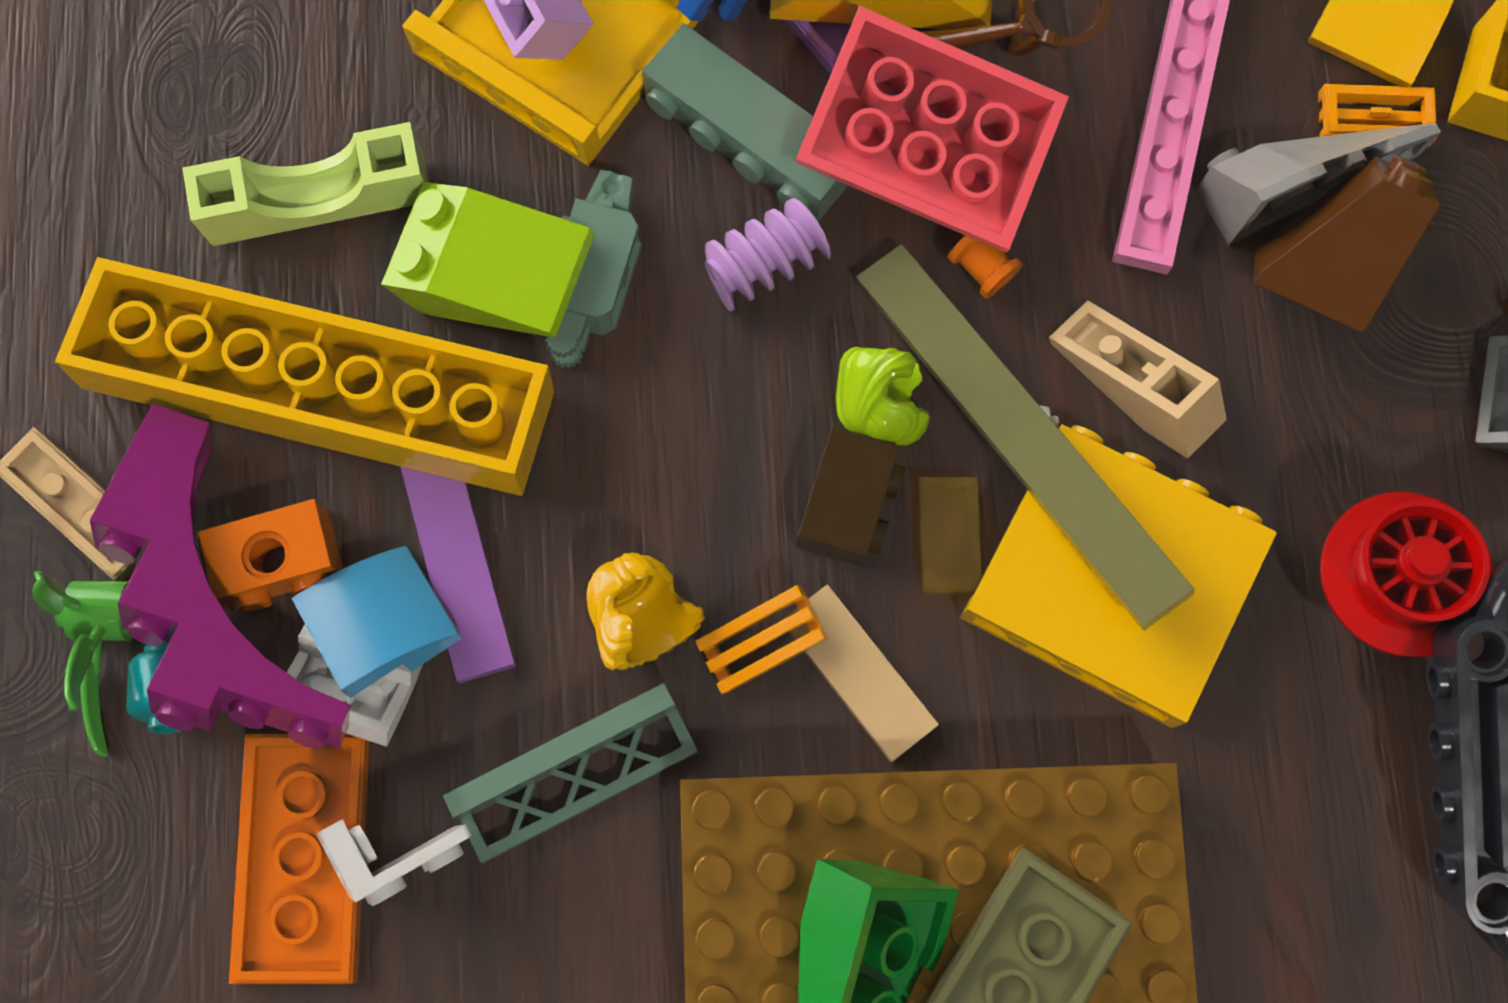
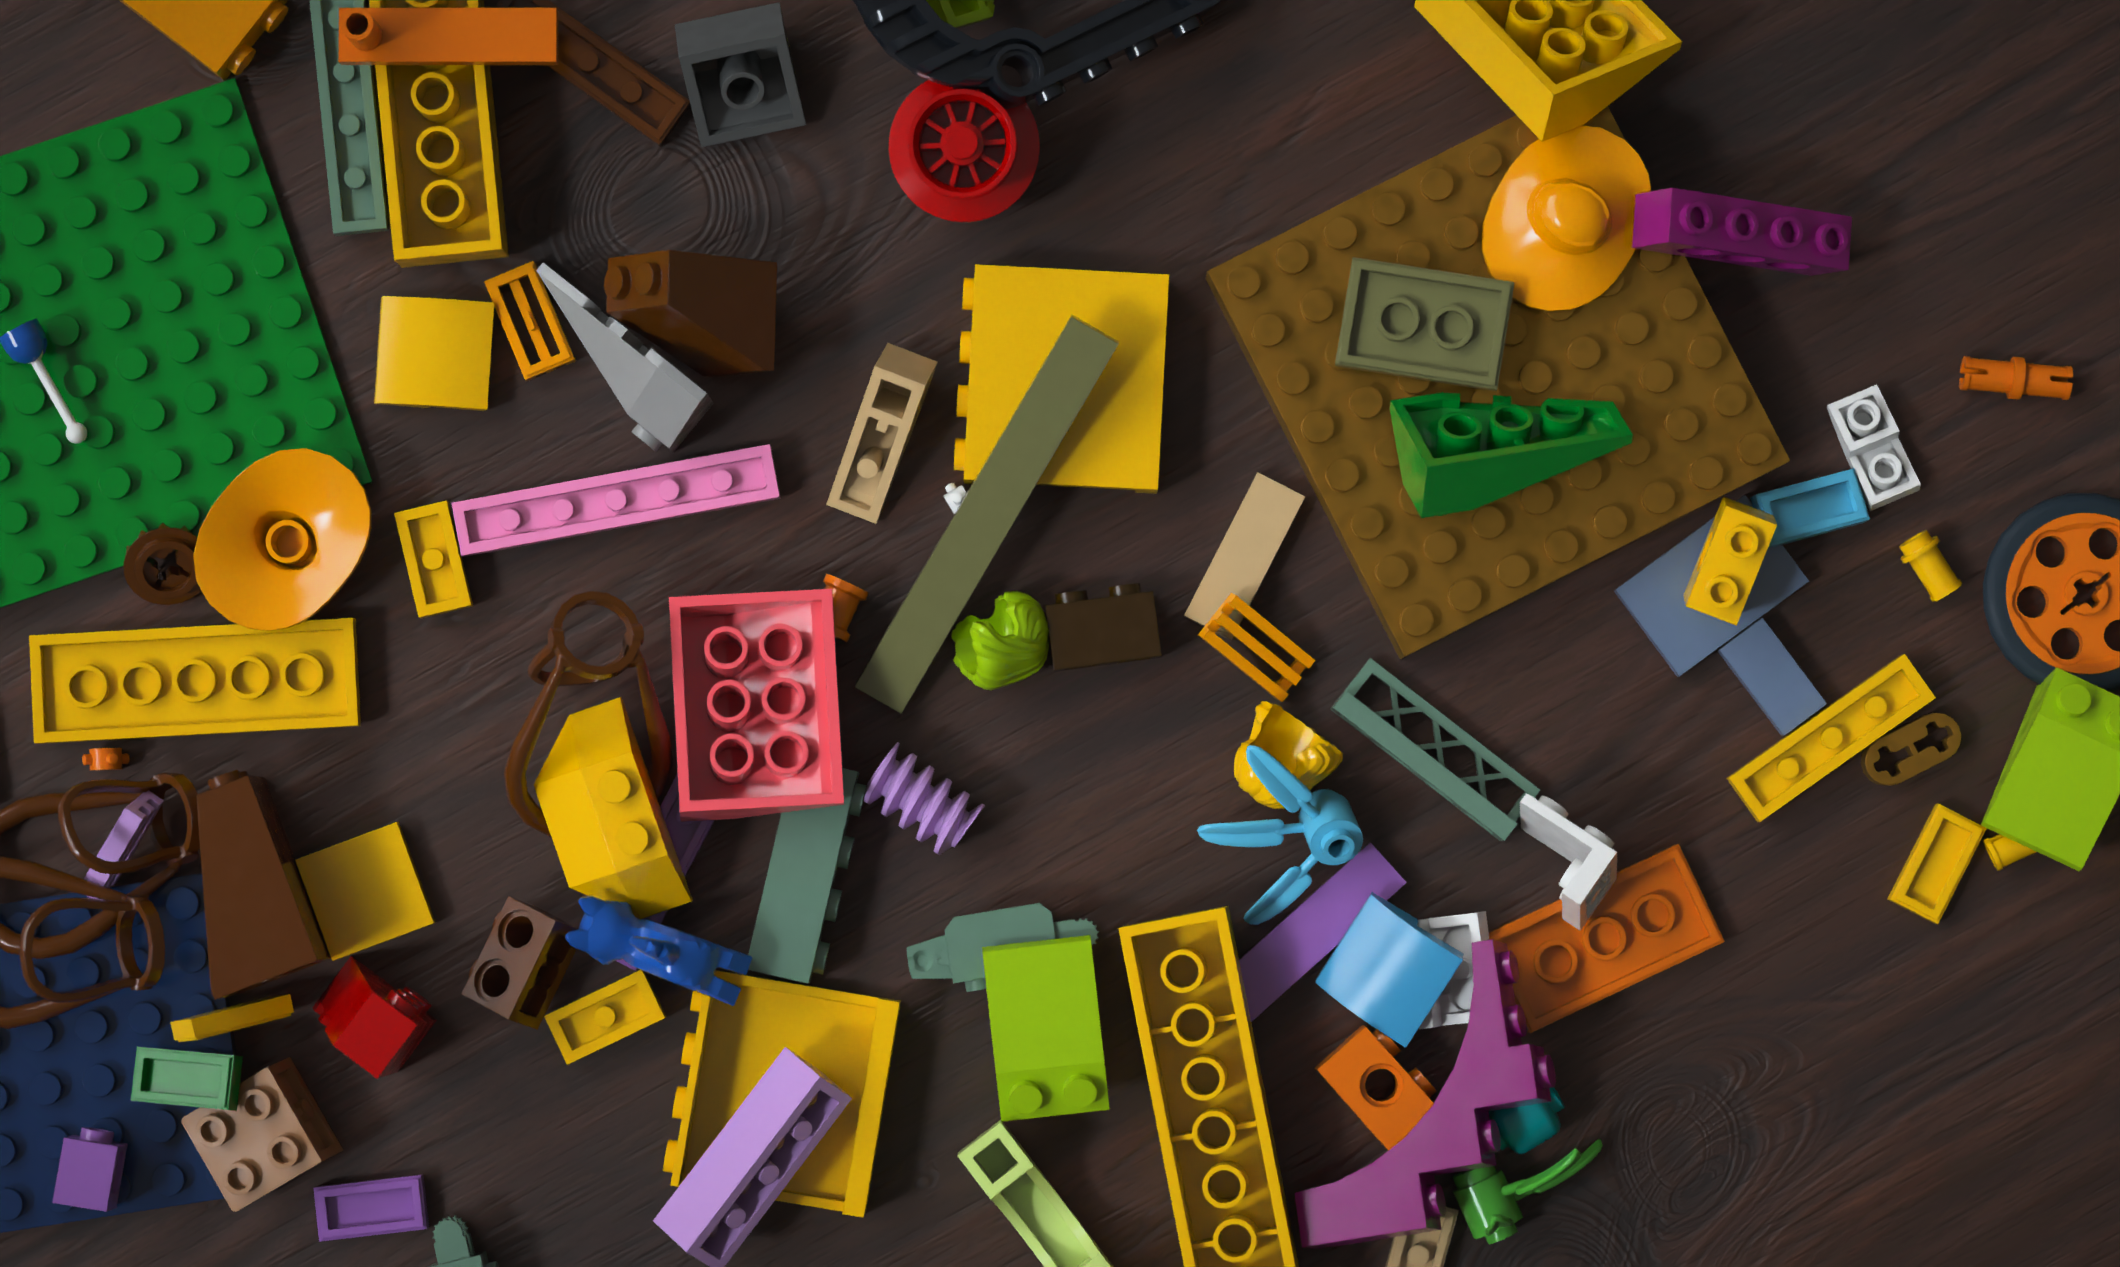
camera: 120 degrees left, 10 degrees up
(550, 623) = (1323, 819): none -> medium azure plant
(949, 535) = (1092, 532): clear yellow tile -> none

